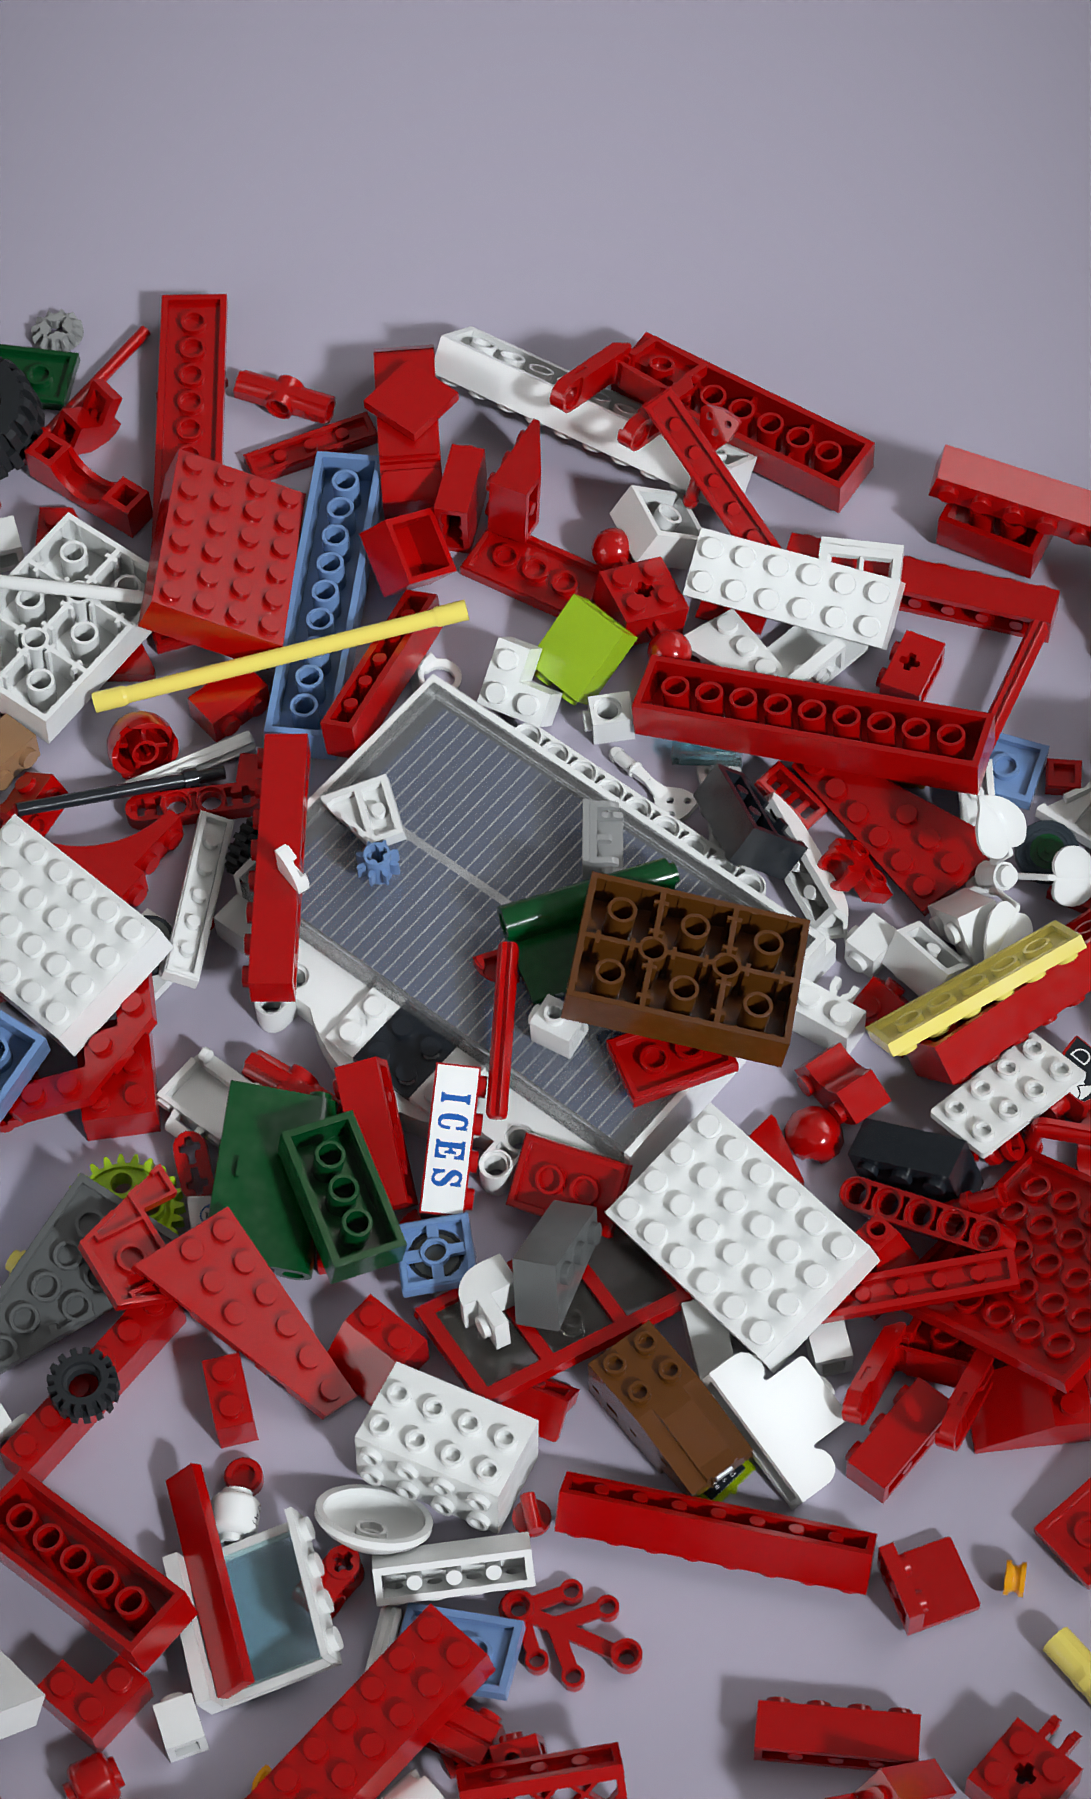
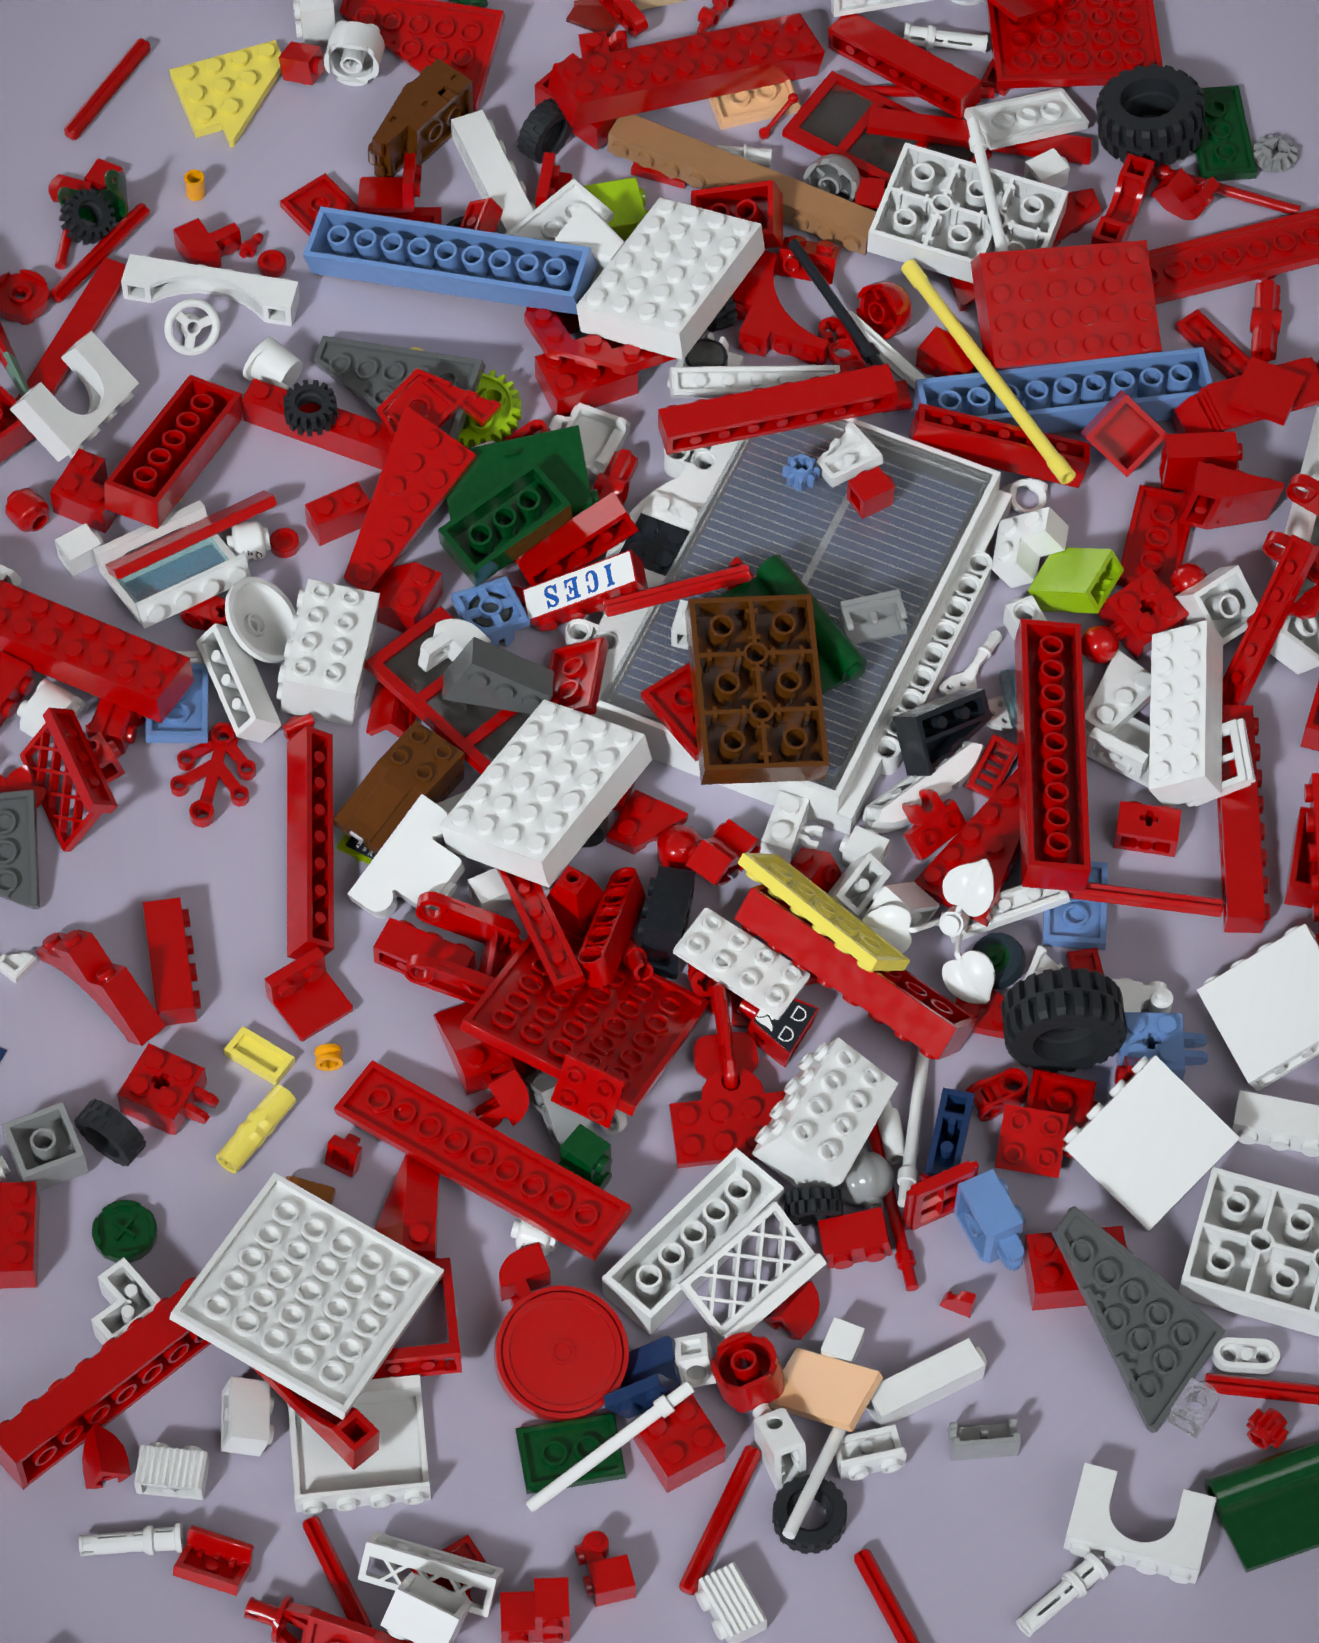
camera: 70 degrees right, 0 degrees up
(289, 870) = (762, 407): white tile -> none
(428, 800) = (870, 491): none -> red brick
(989, 1661) = (259, 1056): none -> light yellow tile

